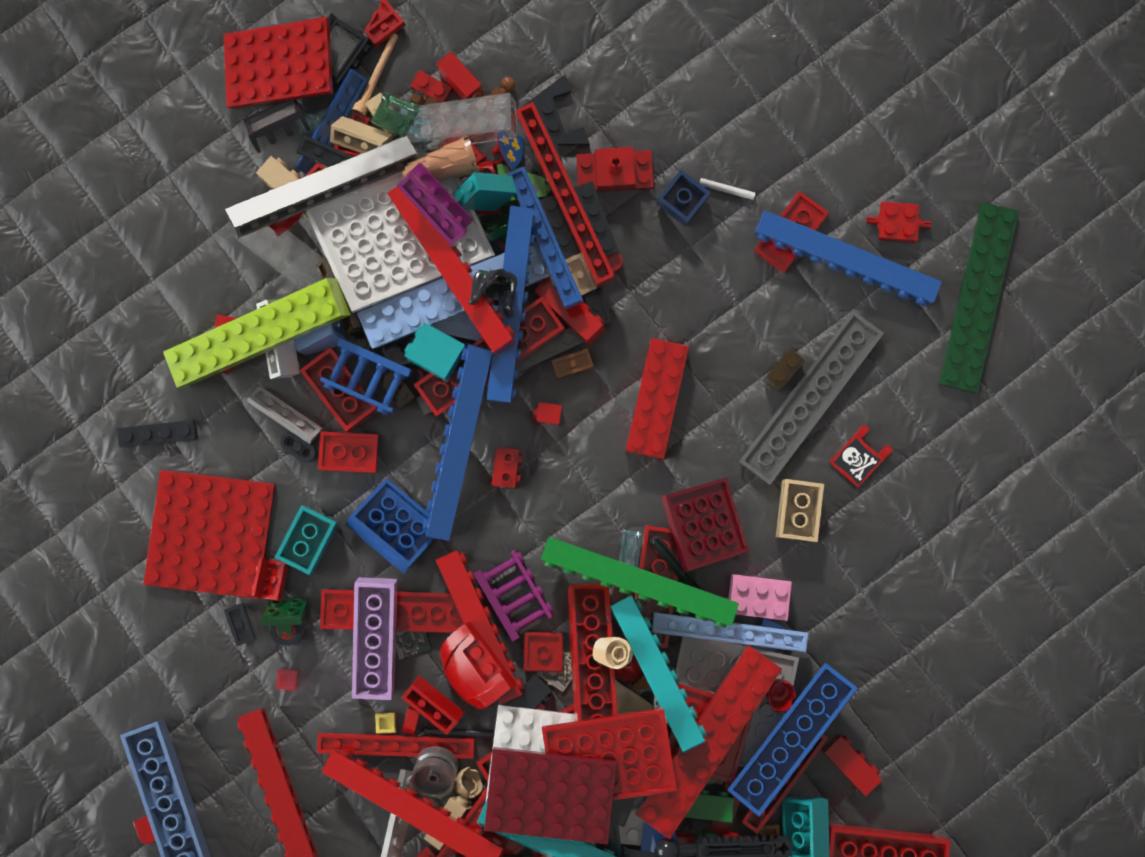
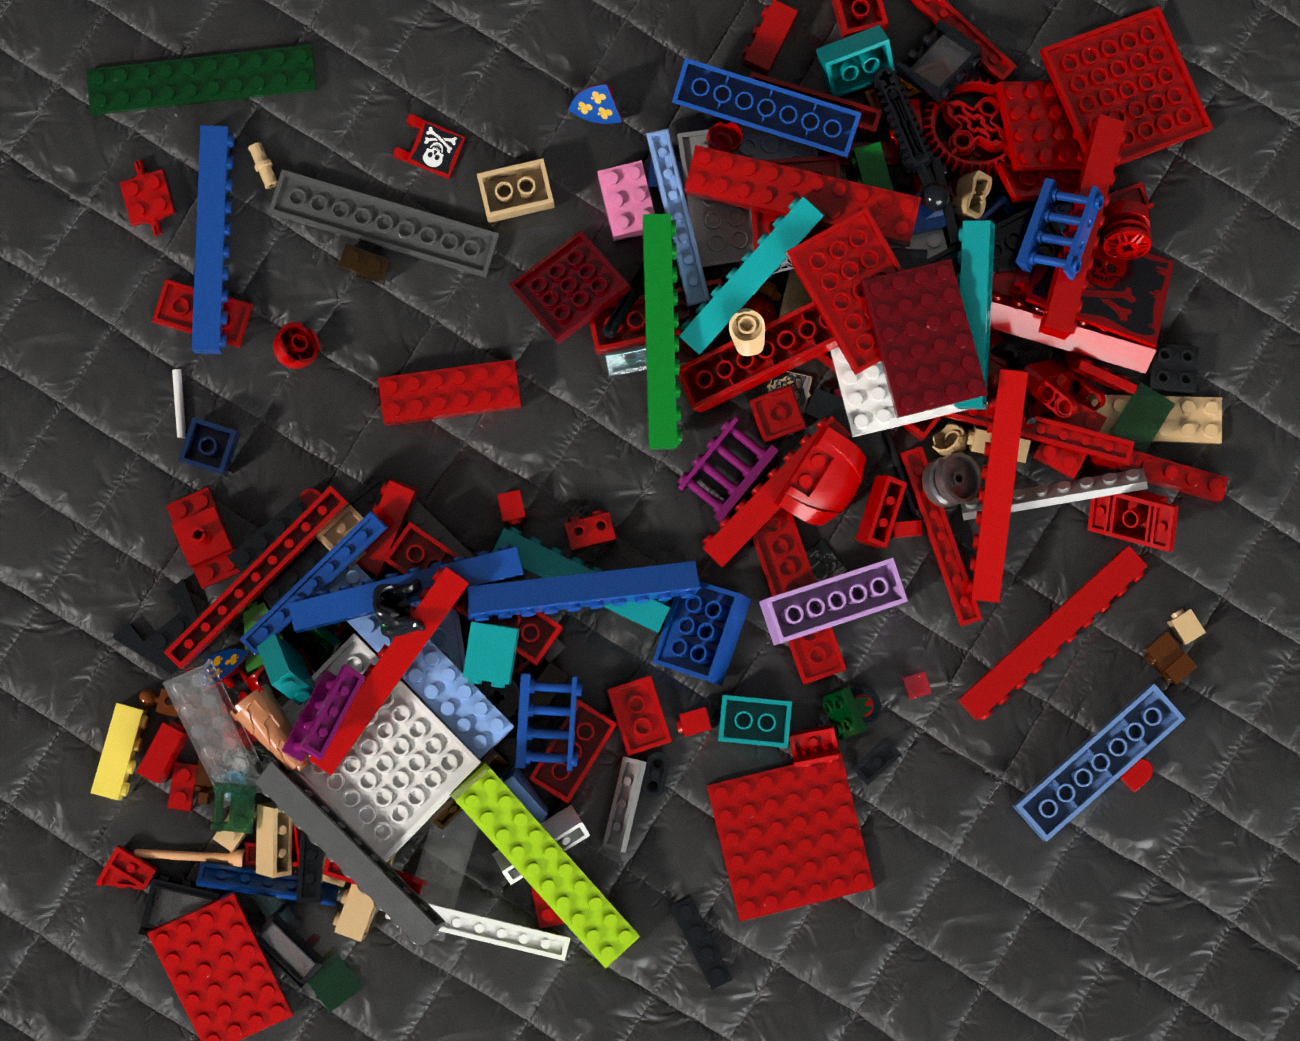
camera: 115 degrees left, 0 degrees up
(224, 280) = (502, 933): none -> white plate
(237, 147) = (334, 984): none -> clear green piece
(326, 492) = (693, 722): none -> red brick
(385, 722) = (921, 557): light yellow tile -> none
(475, 49) = (119, 752): none -> light yellow brick
(486, 431) = (552, 564): none -> teal brick
(572, 363) = (445, 502): dark orange plate -> none
(738, 292) = (295, 346): none -> red cylinder
(846, 601) = (596, 105): none -> blue shield
(892, 320) = (263, 165): none -> tan pin

